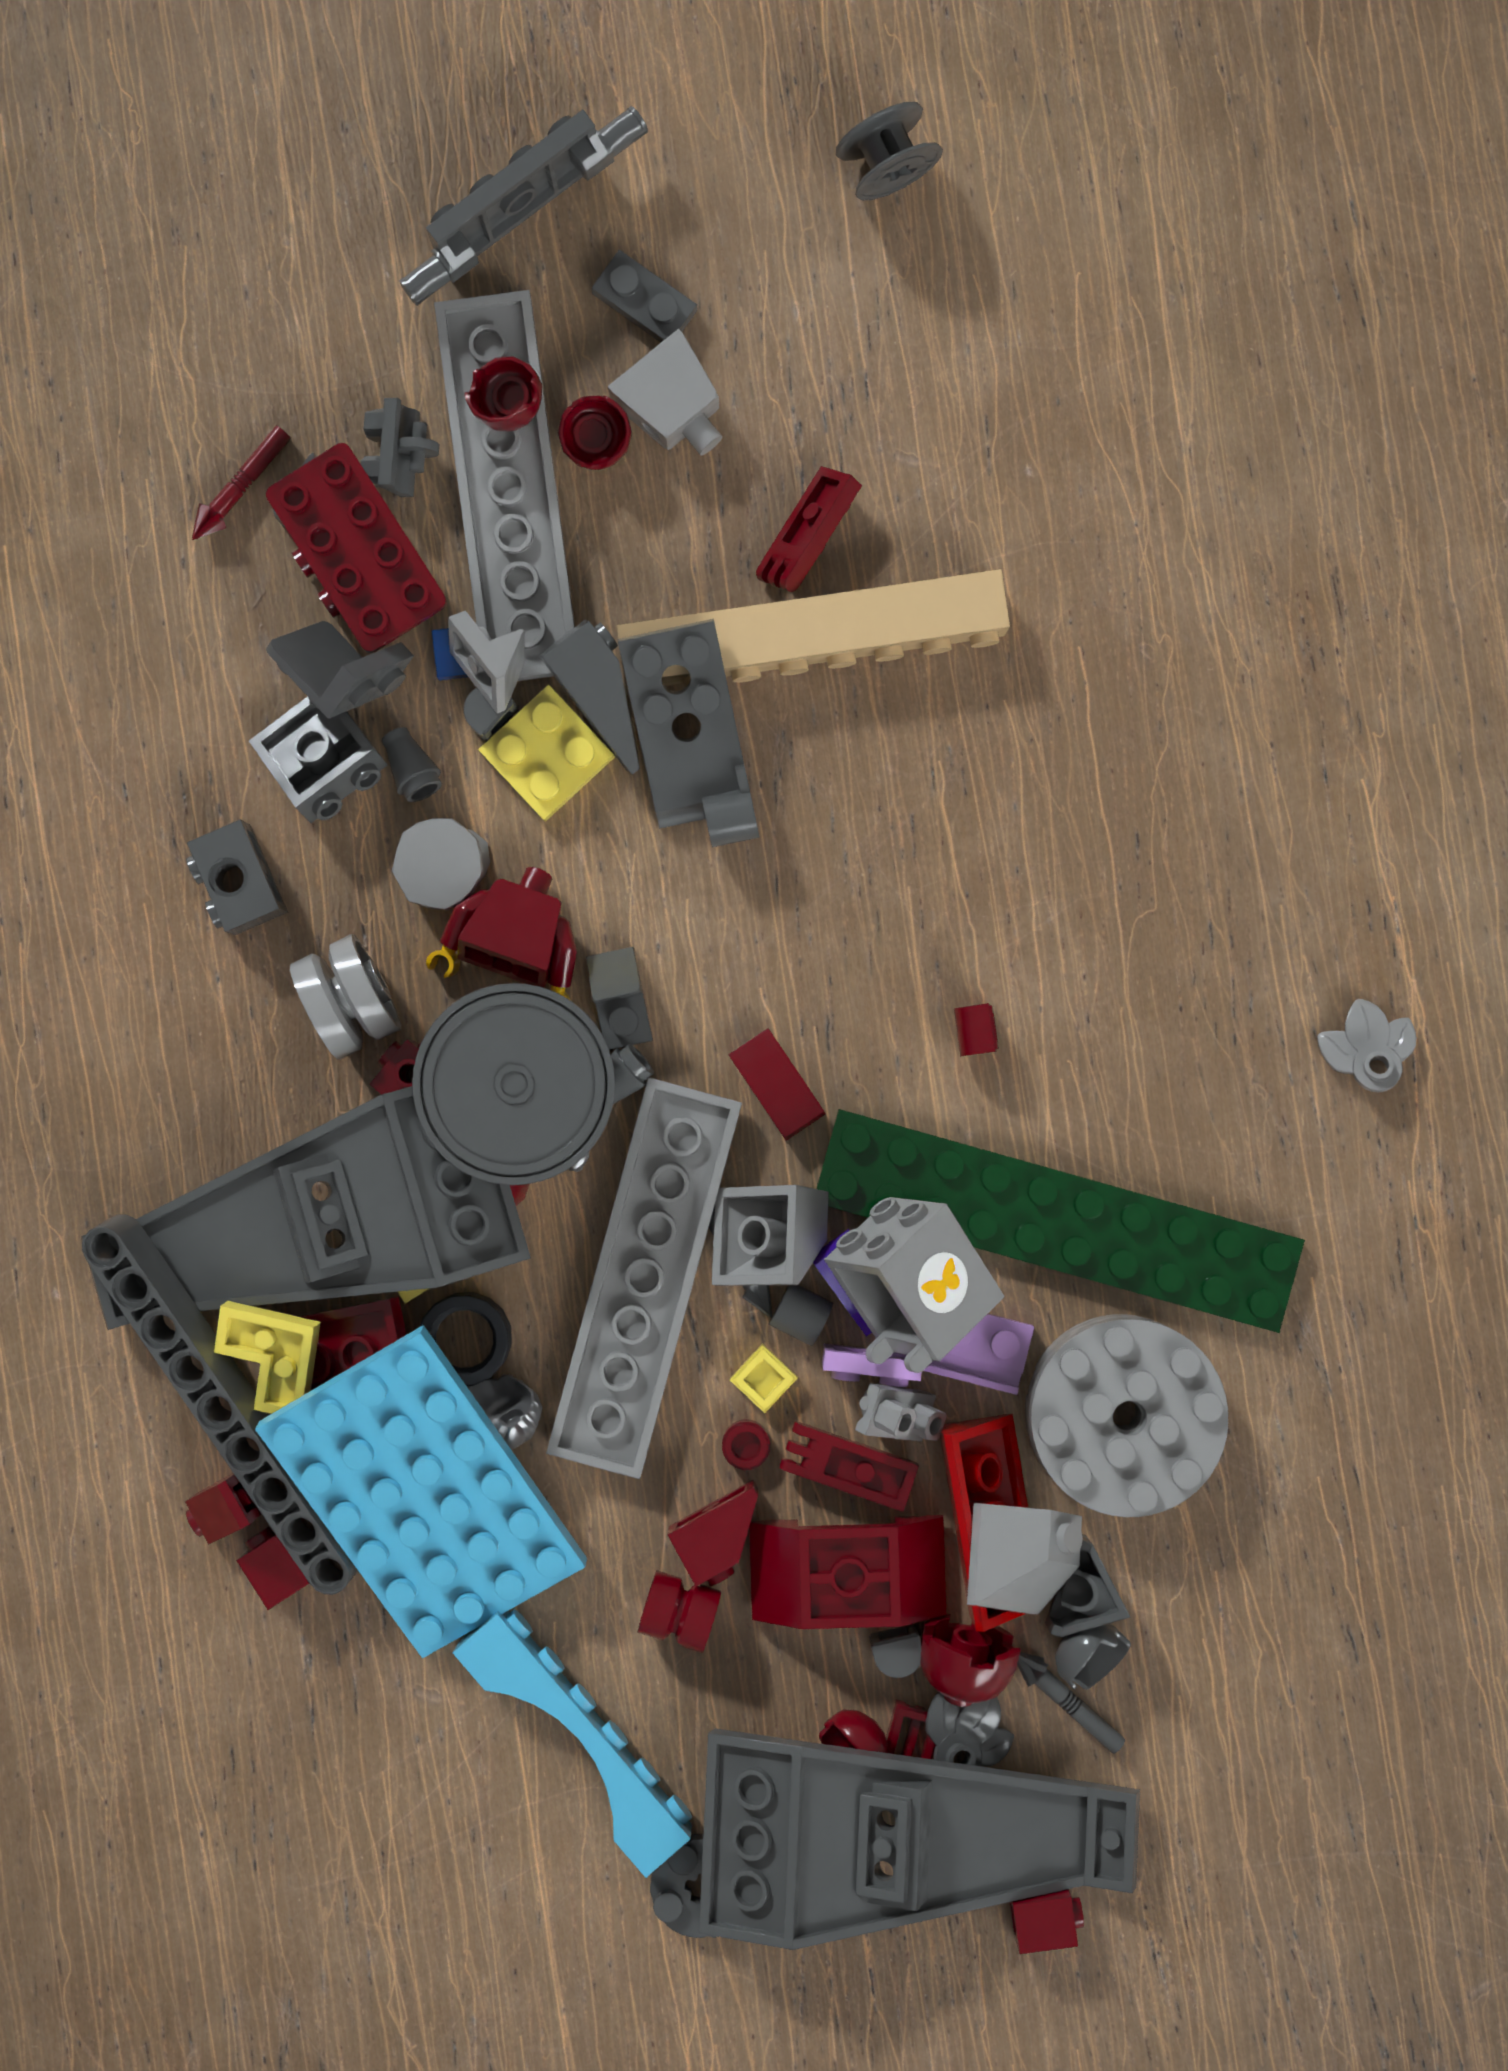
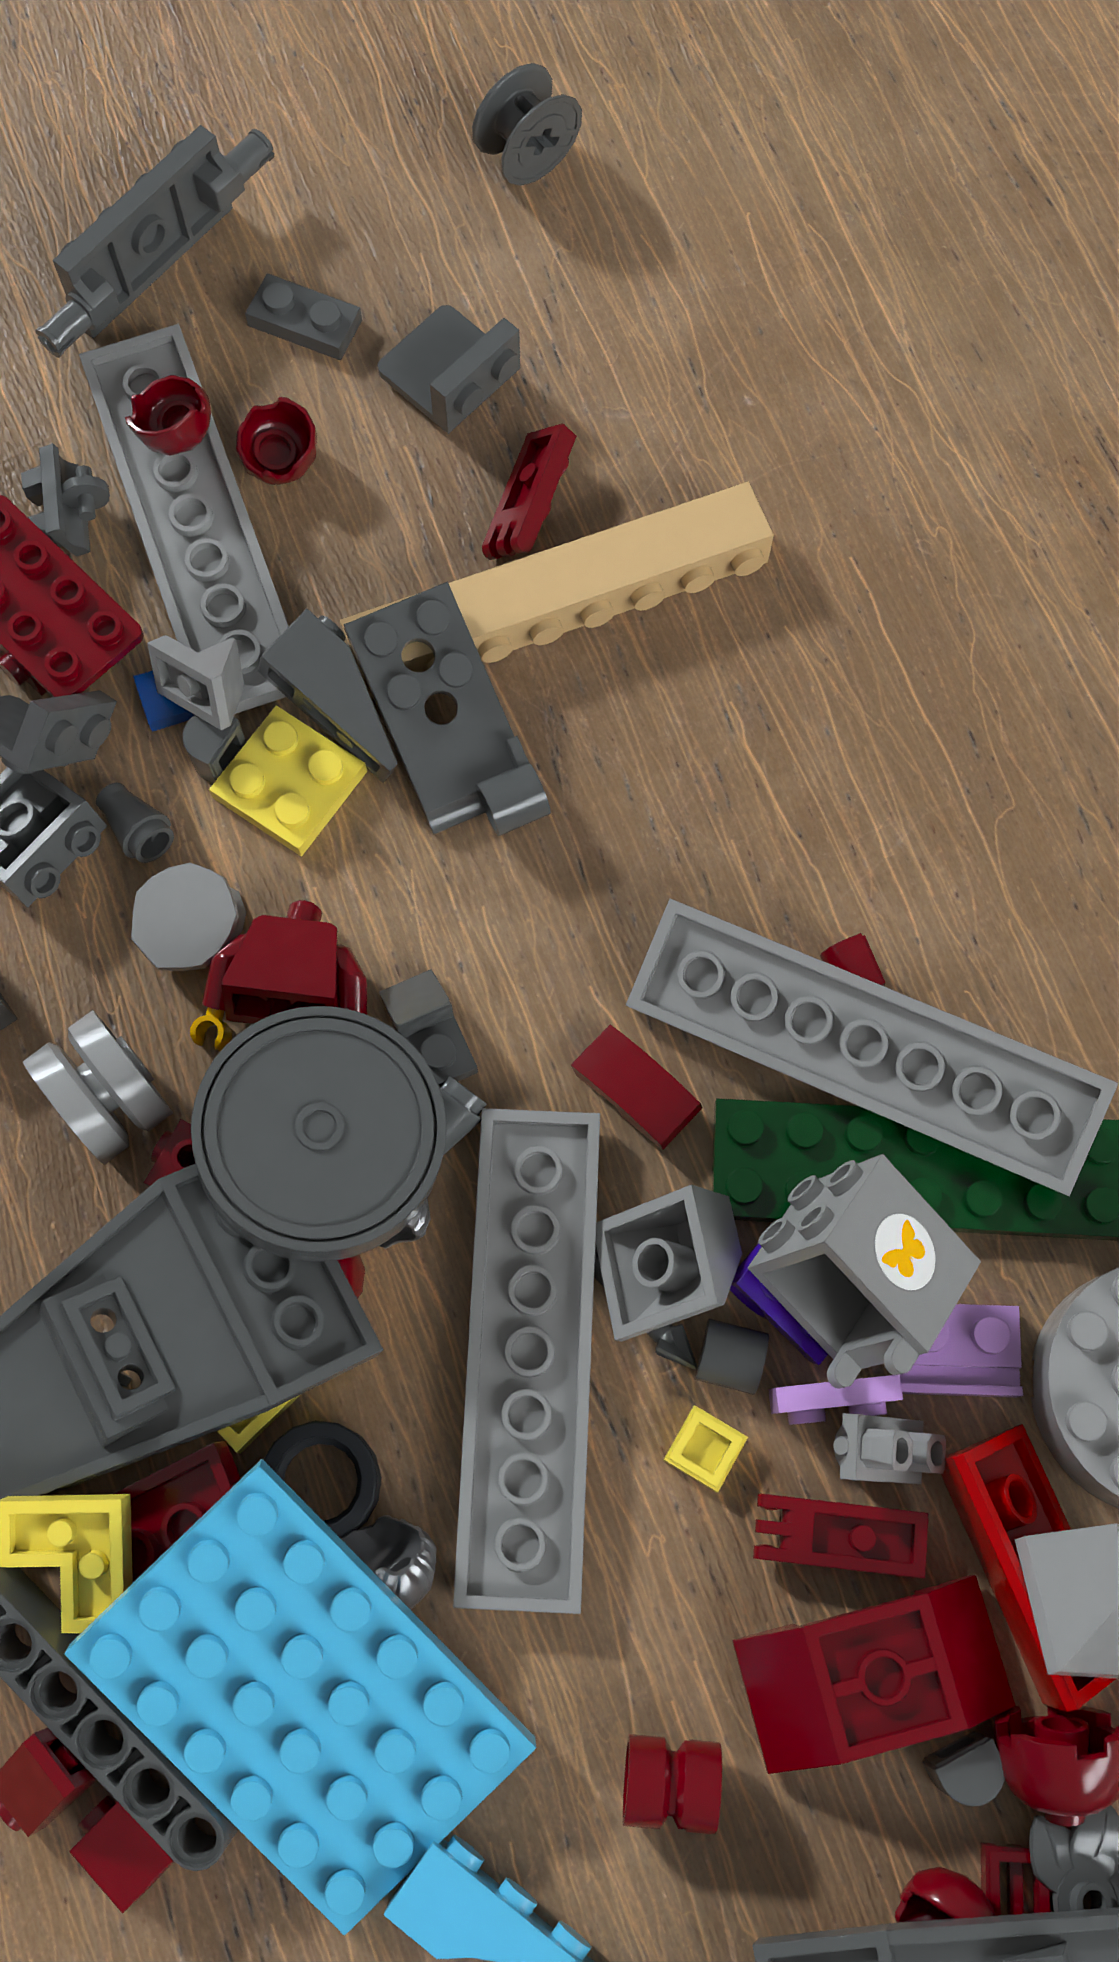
camera: 10 degrees left, 15 degrees down
(670, 396) = (352, 393): light grey torso -> none
(715, 1535) = (695, 1668): dark red slope -> none
(746, 1444) = (704, 1540): dark red tile -> none
(766, 383) = (451, 365): none -> dark grey bracket
(968, 1098) = (873, 1046): none -> light grey plate

